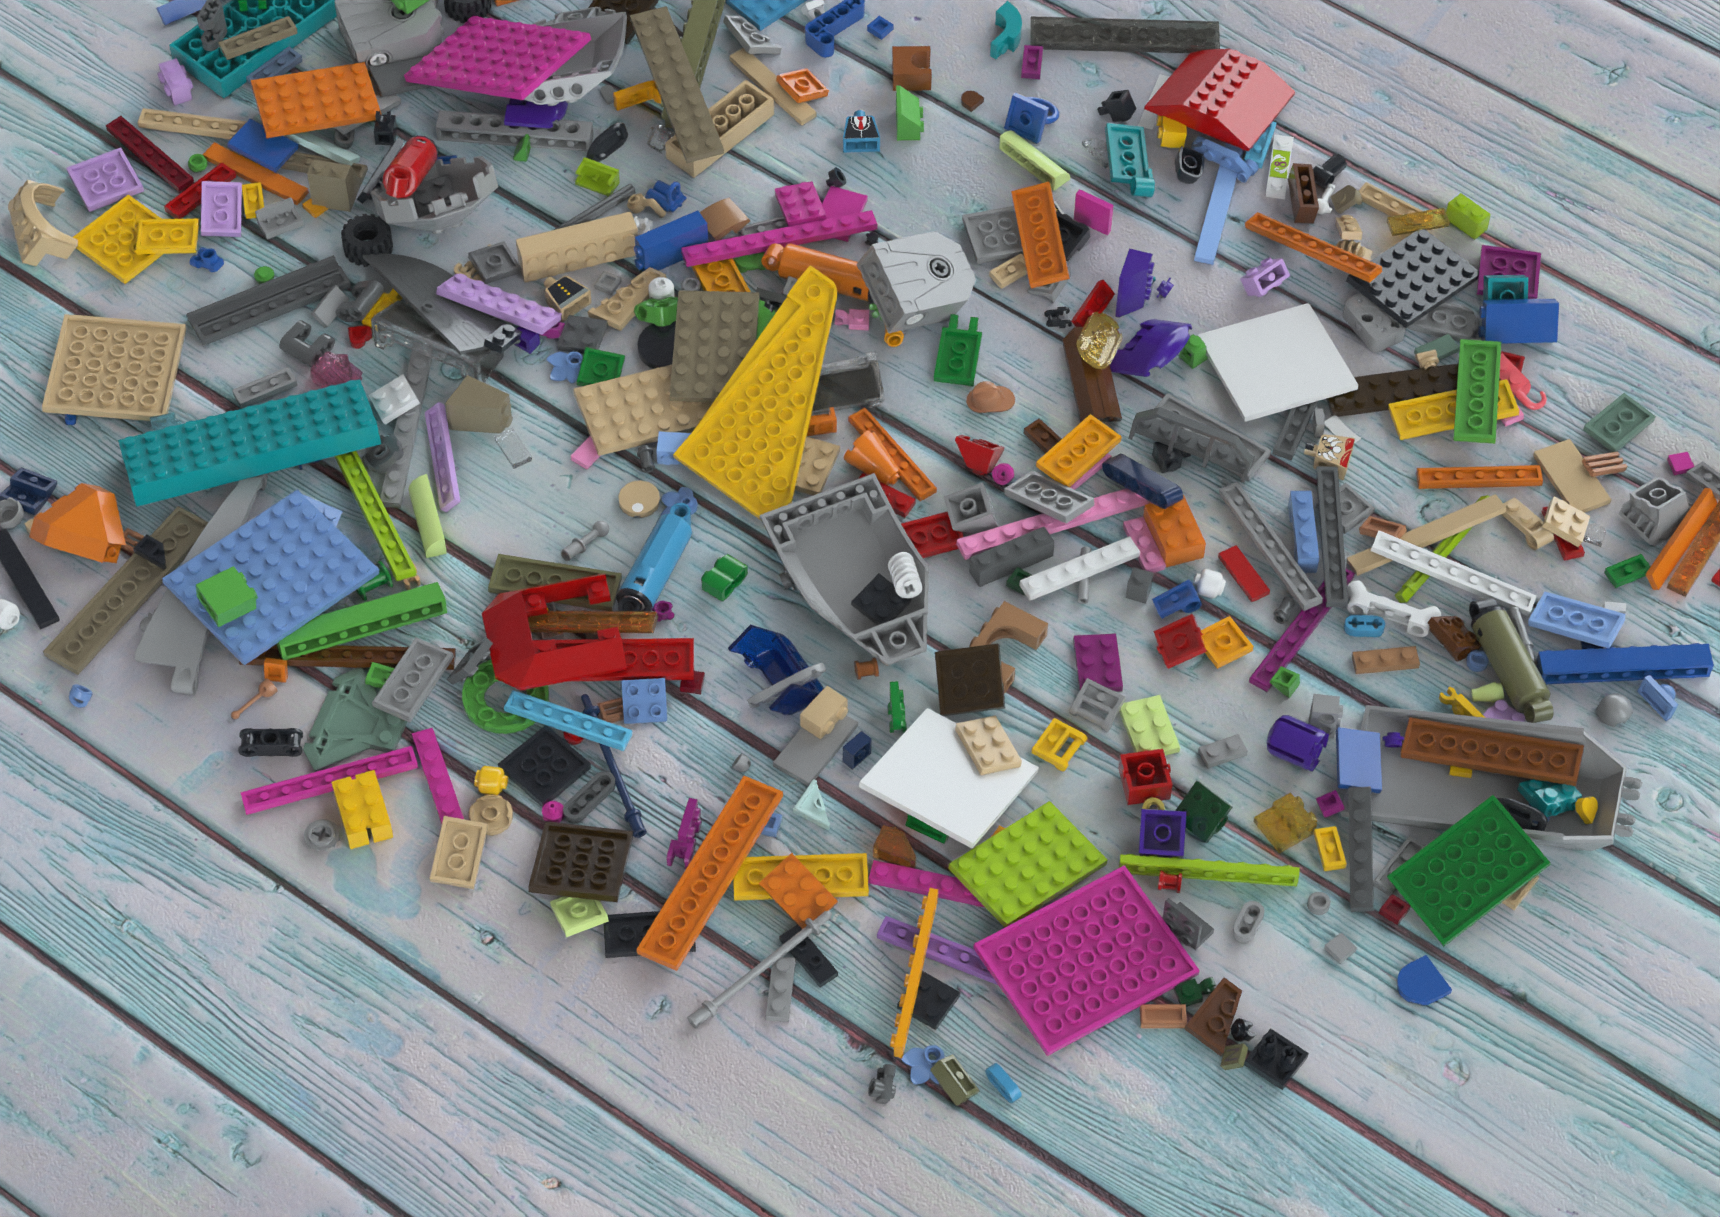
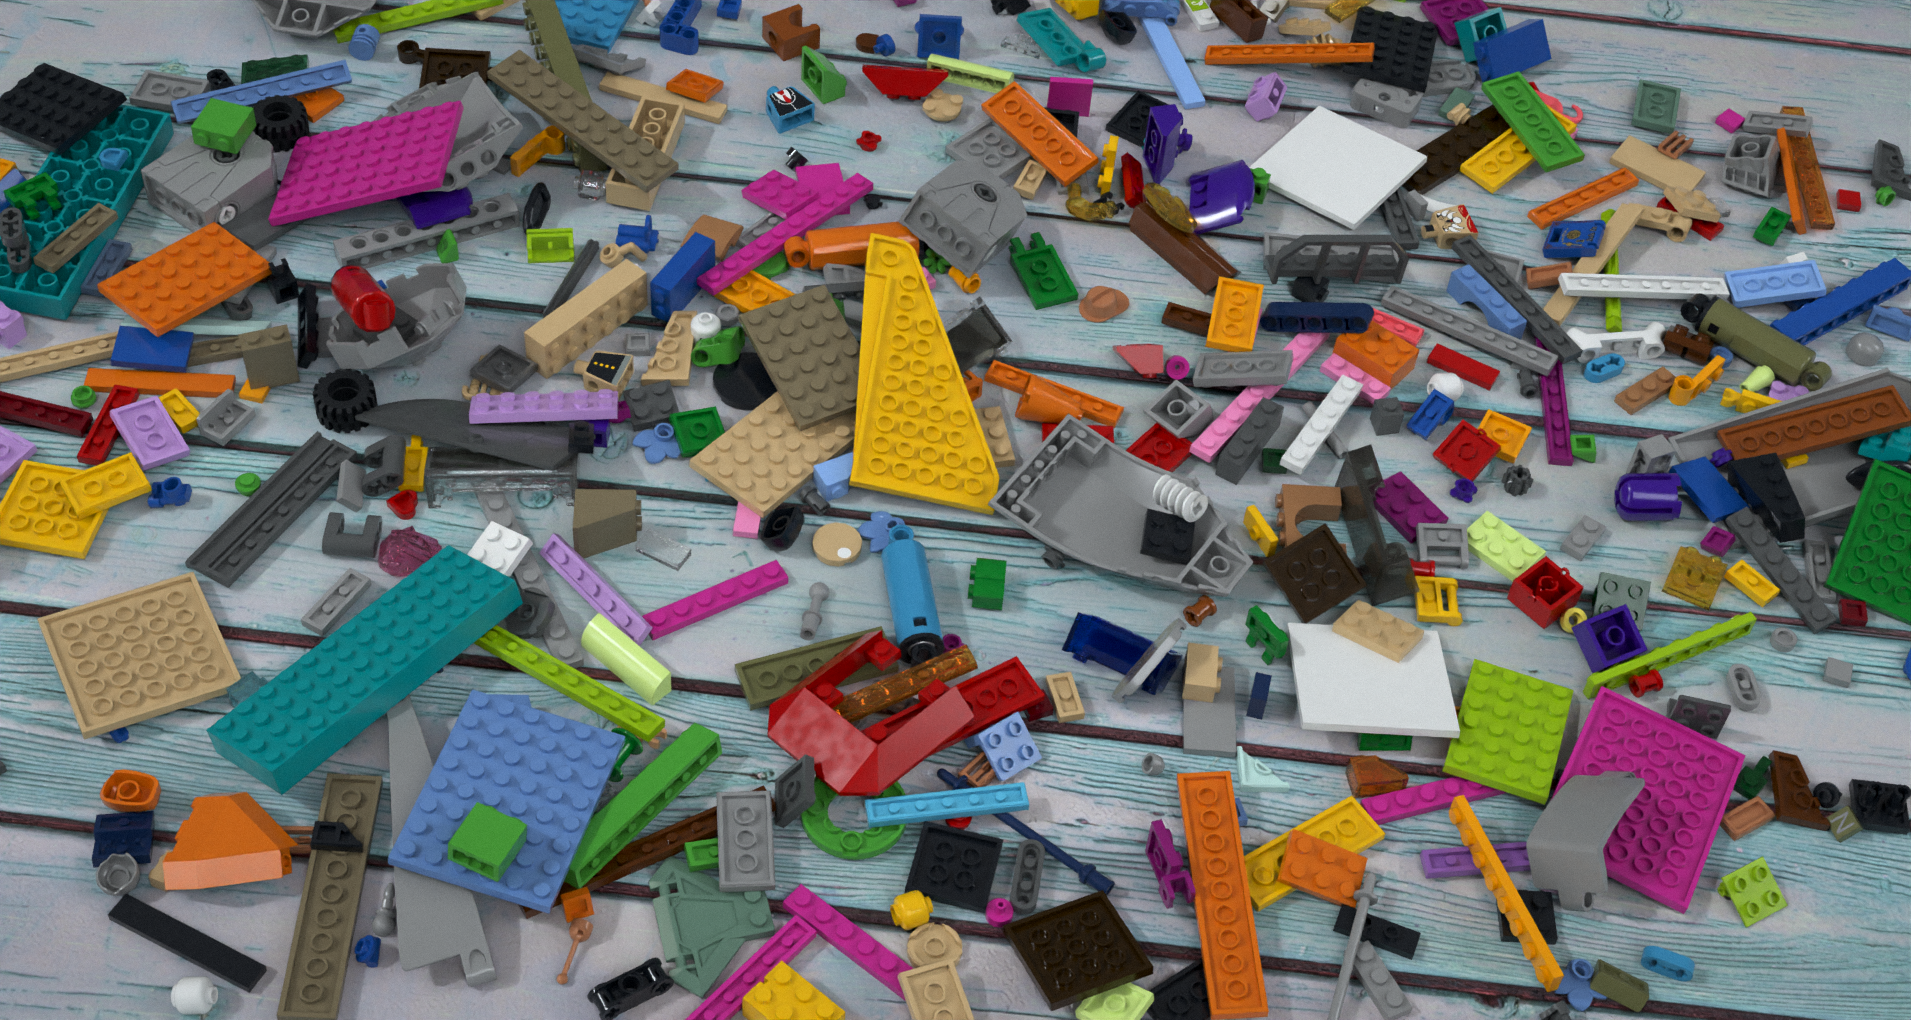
camera: 35 degrees left, 5 degrees down
(49, 461) = (130, 791): none -> orange piece
(127, 637) = (368, 950): none -> blue plate
(522, 501) = (716, 599): none -> dark pink plate
(605, 469) = (782, 528): none -> black piece
(715, 685) = (1065, 697): none -> tan plate
(906, 186) = (868, 141): none -> red plate
(961, 628) = (1260, 531): none -> yellow plate
(968, 145) = (904, 80): none -> red wedge
(980, 108) = (885, 45): none -> blue tile
(989, 179) = (942, 106): none -> tan piece
(998, 947) = (1572, 832): none -> light grey panel
(1032, 311) = (1085, 210): none -> clear yellow arm
(1061, 629) = (1382, 565): none -> clear smoke windscreen
(1064, 715) = (1423, 568): none -> red bush
(1081, 287) = (1107, 165): none -> yellow plate
(1116, 1068) = (1753, 891): none -> lime hinge
(1155, 666) = (1464, 490): none -> dark purple plate
(1158, 243) = (1133, 117): none -> black tile
(1204, 682) = (1517, 480): none -> dark grey gear
(1210, 514) = (1403, 329): none -> coral tile
(1399, 784) = (1769, 493): none -> black wedge
(1428, 507) = (1574, 238): none -> blue container
(1434, 672) = (1686, 388): none -> light orange plate

